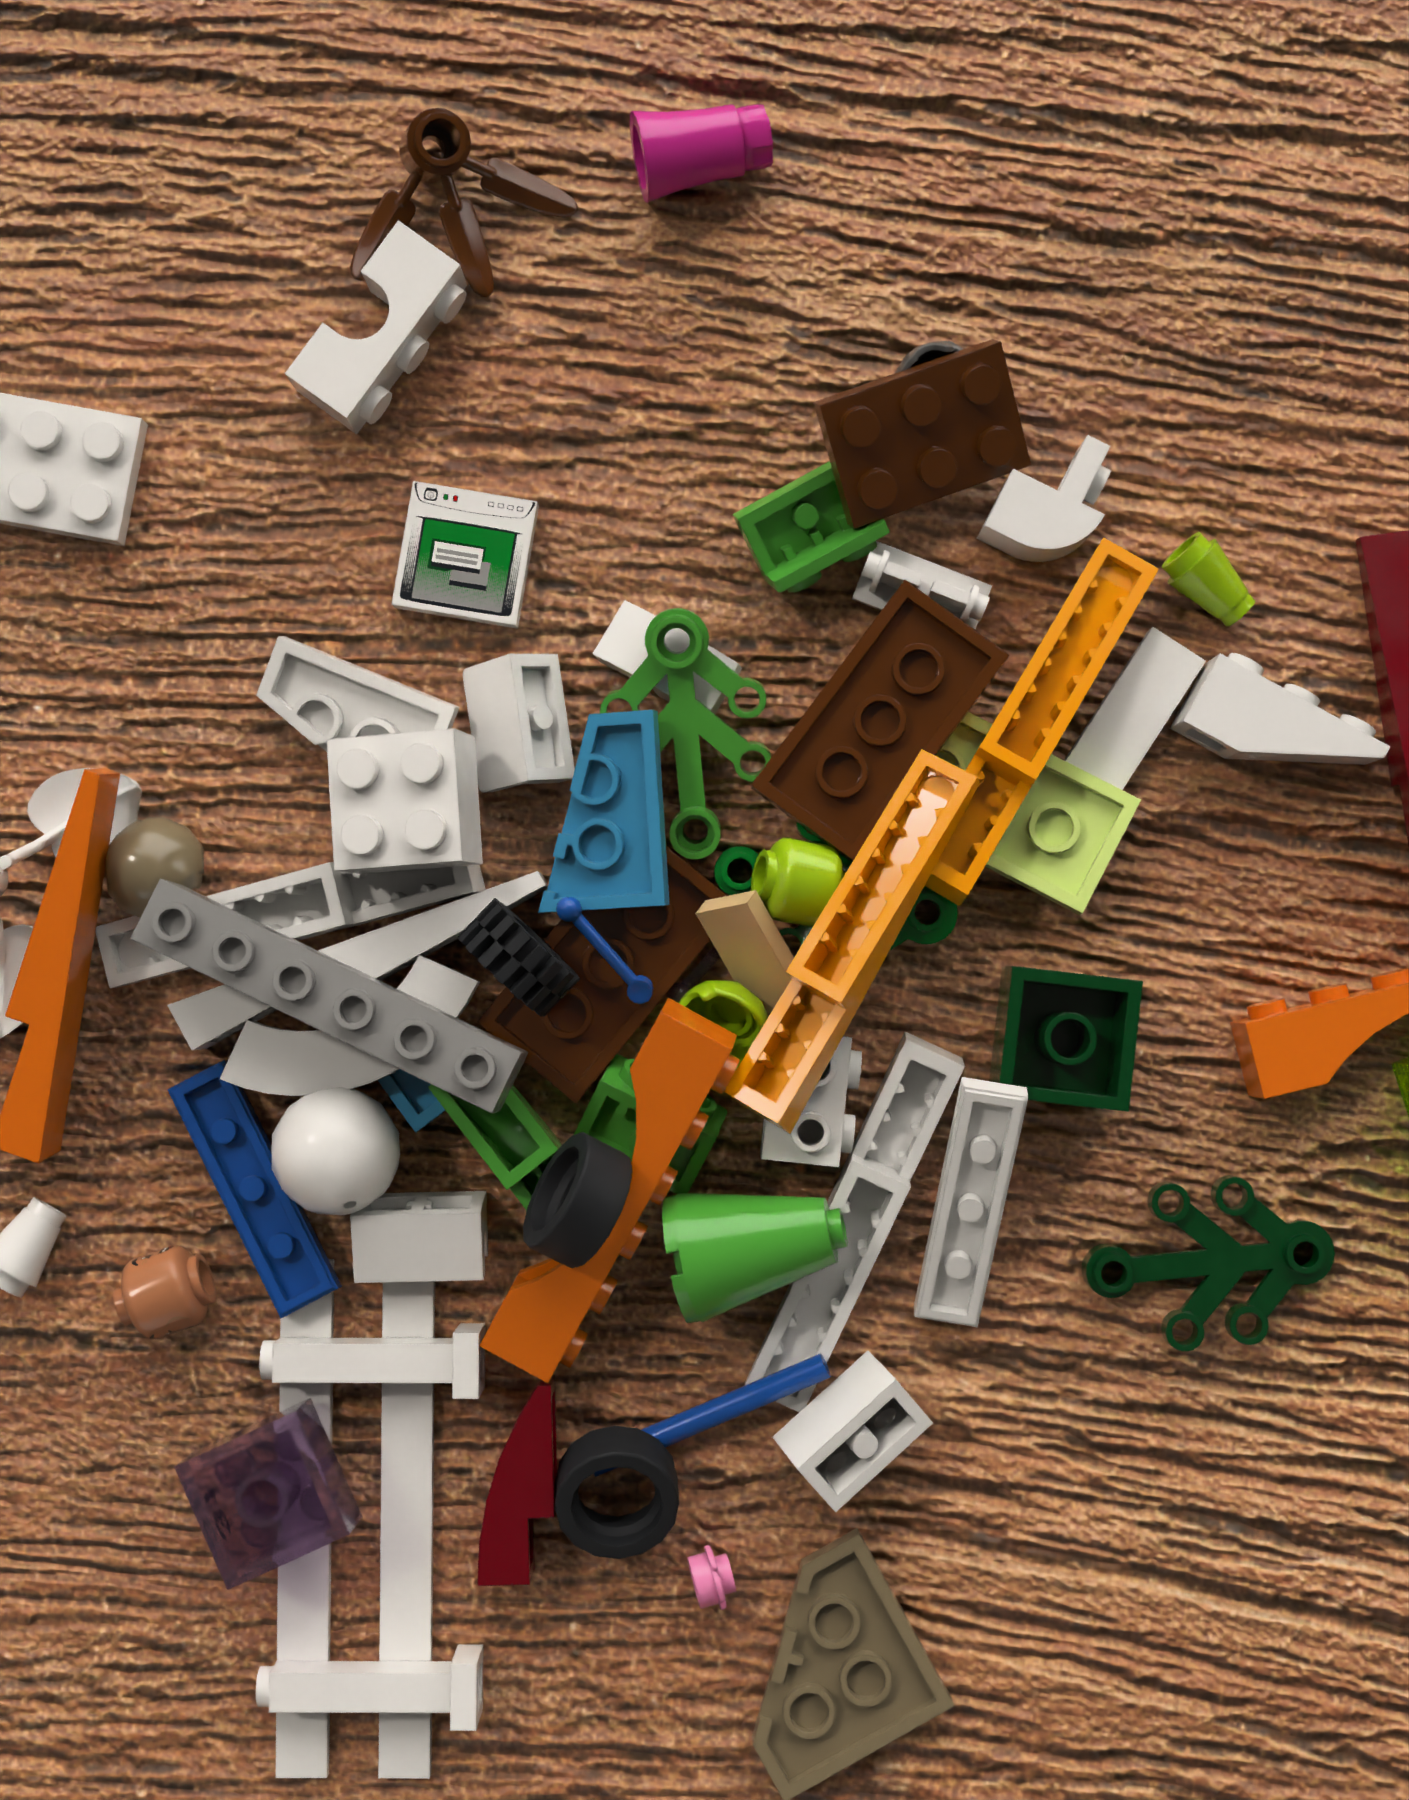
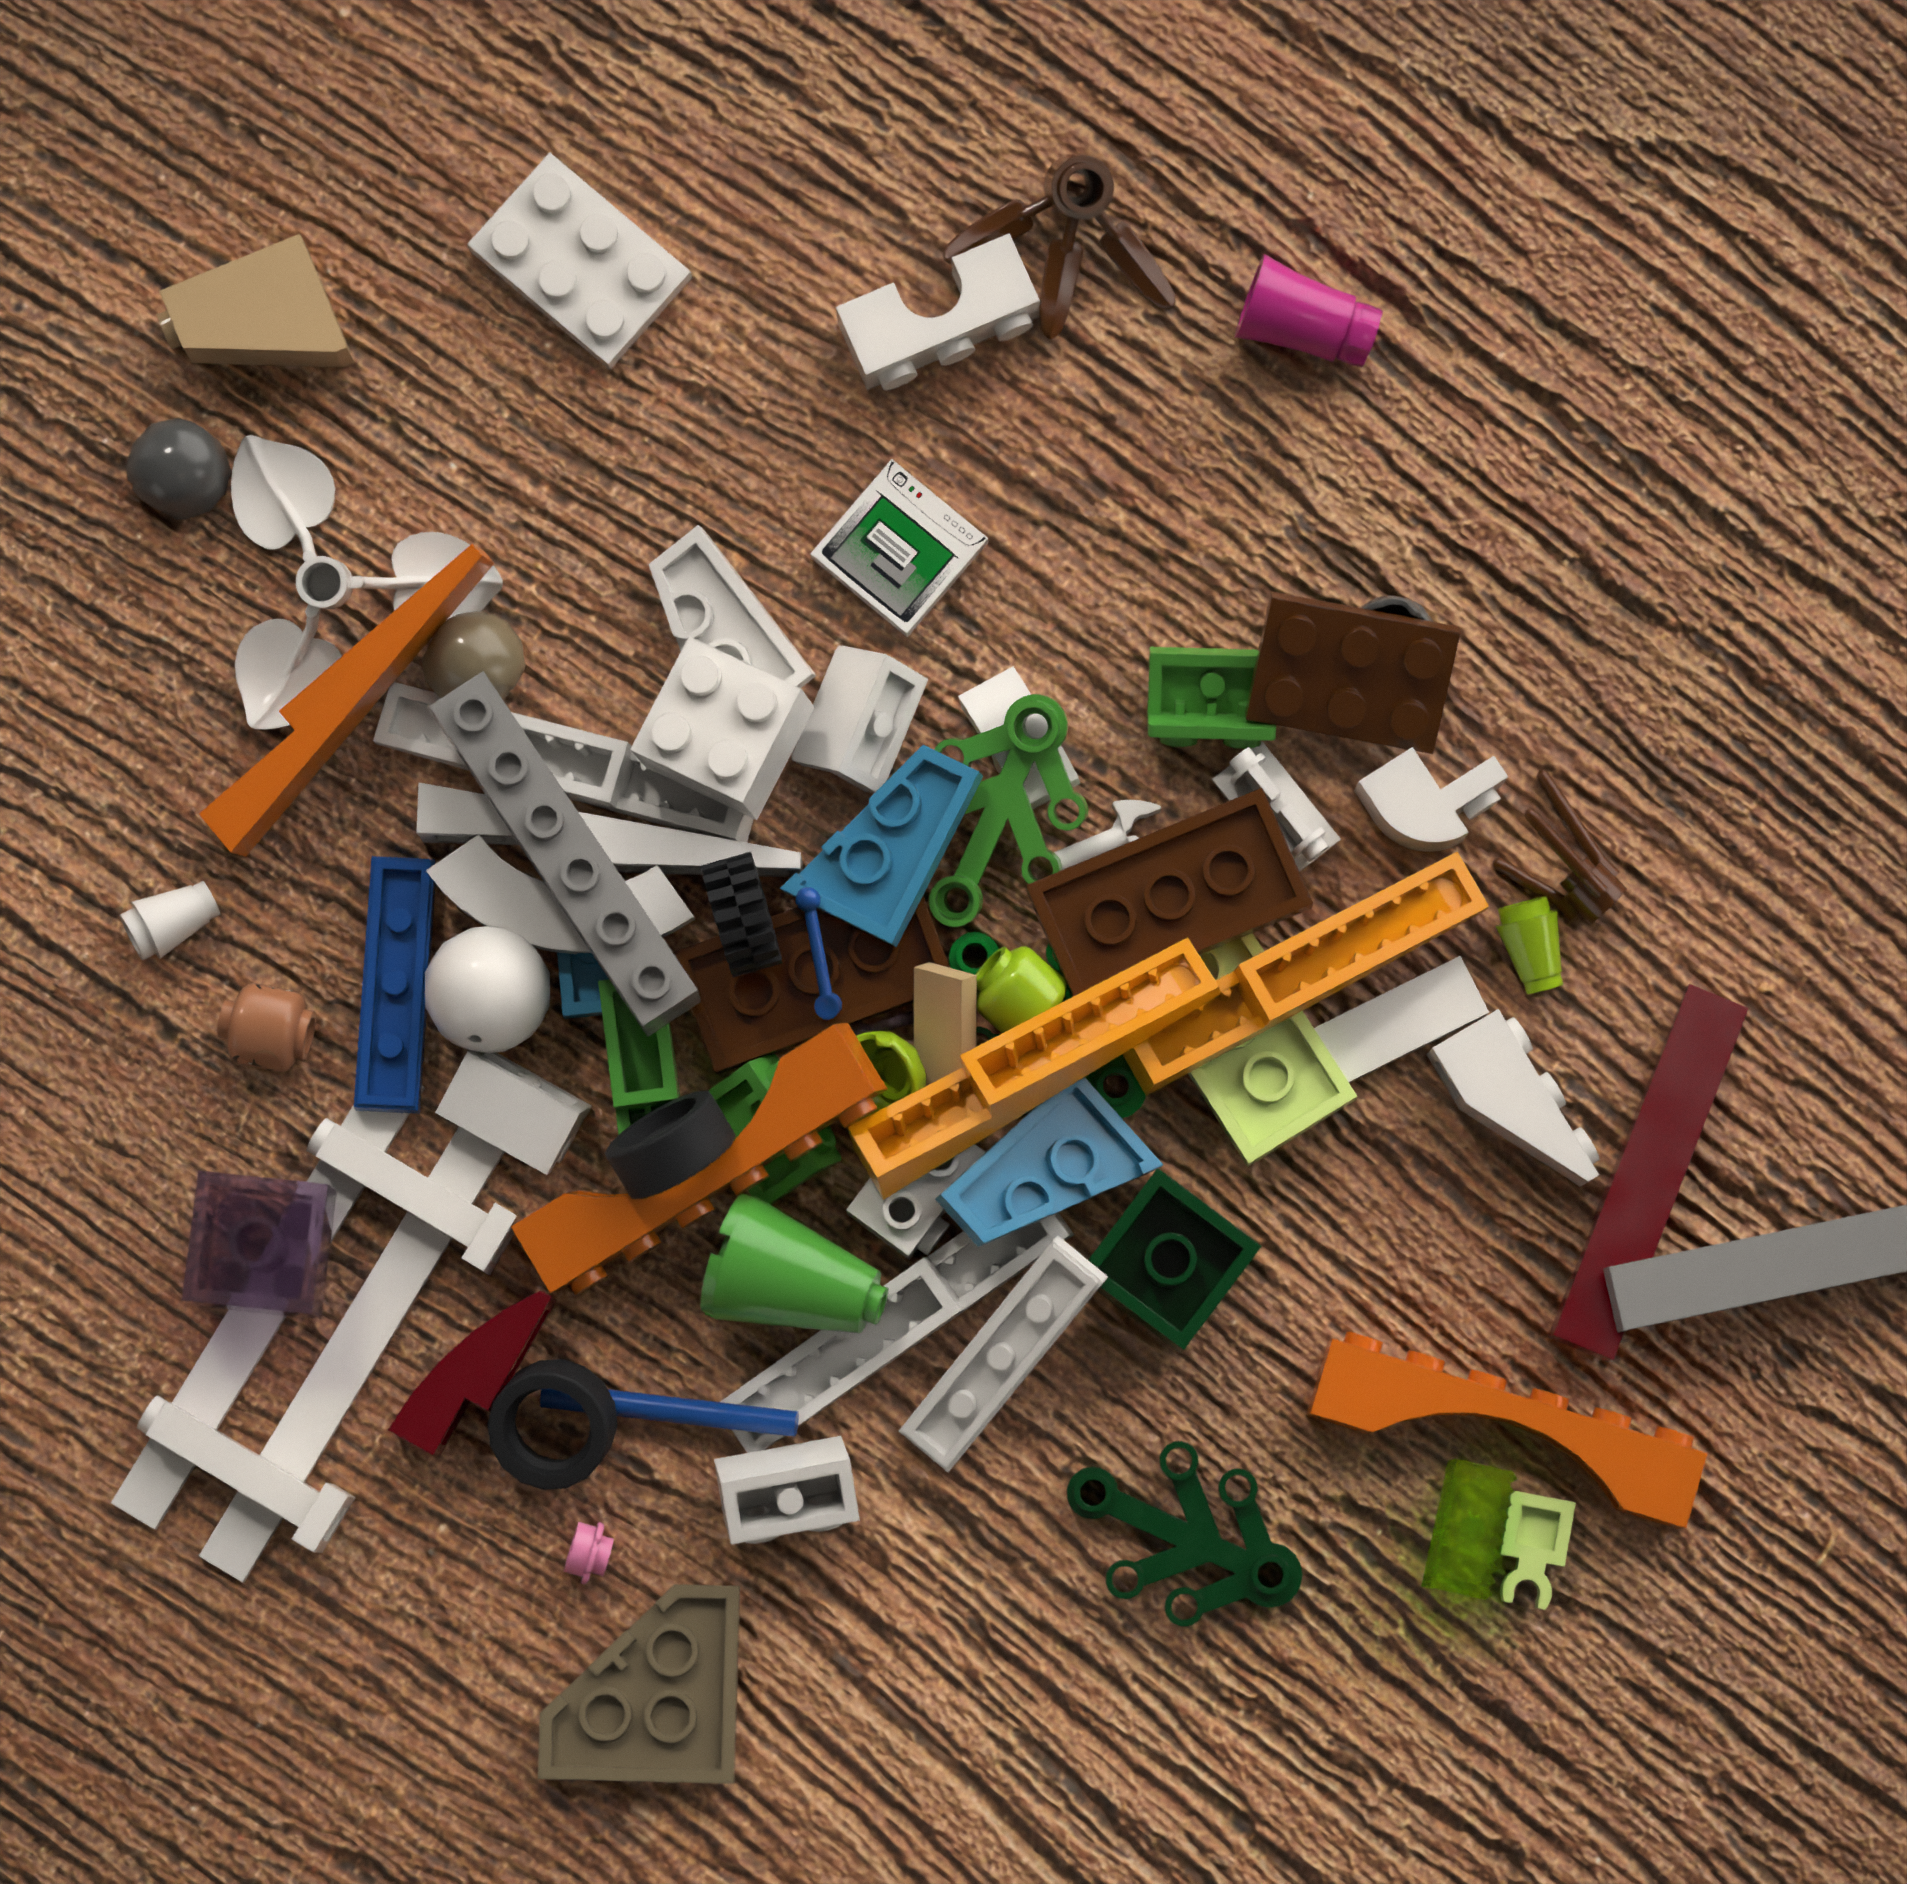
camera: 30 degrees right, 5 degrees down
(796, 701) = (1127, 813): none -> white bar
(911, 1020) = (1046, 1164): none -> dark azure wing
(1226, 497) = (1589, 884): none -> reddish brown plant

